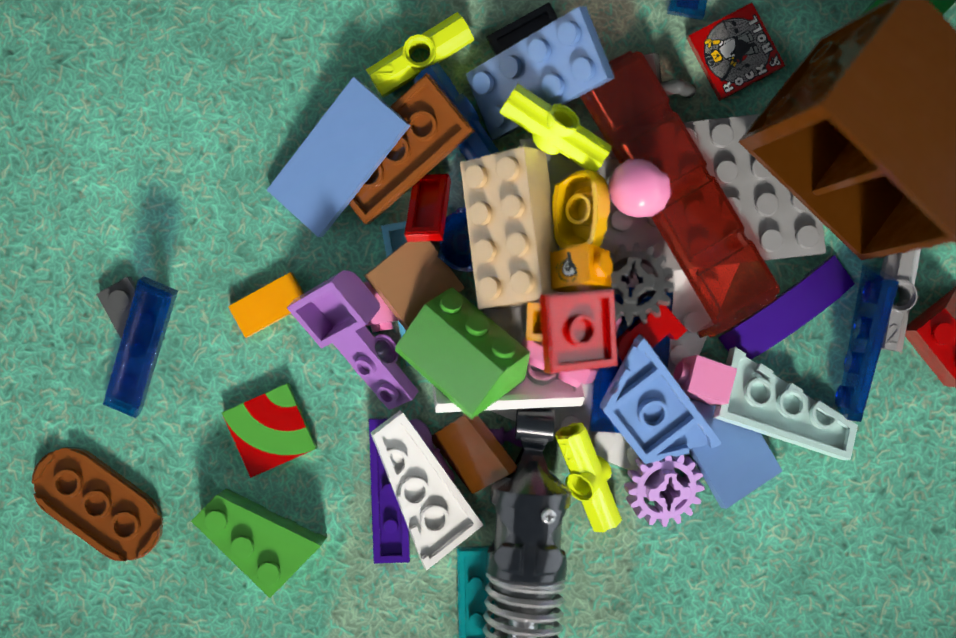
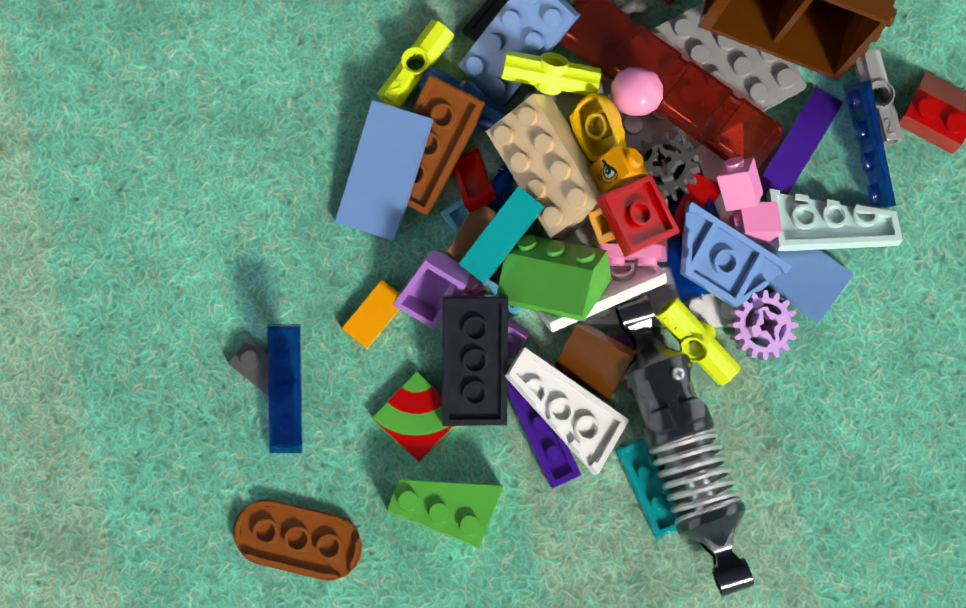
camera: 20 degrees left, 10 degrees down
(346, 401) = (474, 360): none -> black tile
(427, 285) = (501, 235): none -> teal tile
(705, 337) = (739, 183): none -> bright pink brick

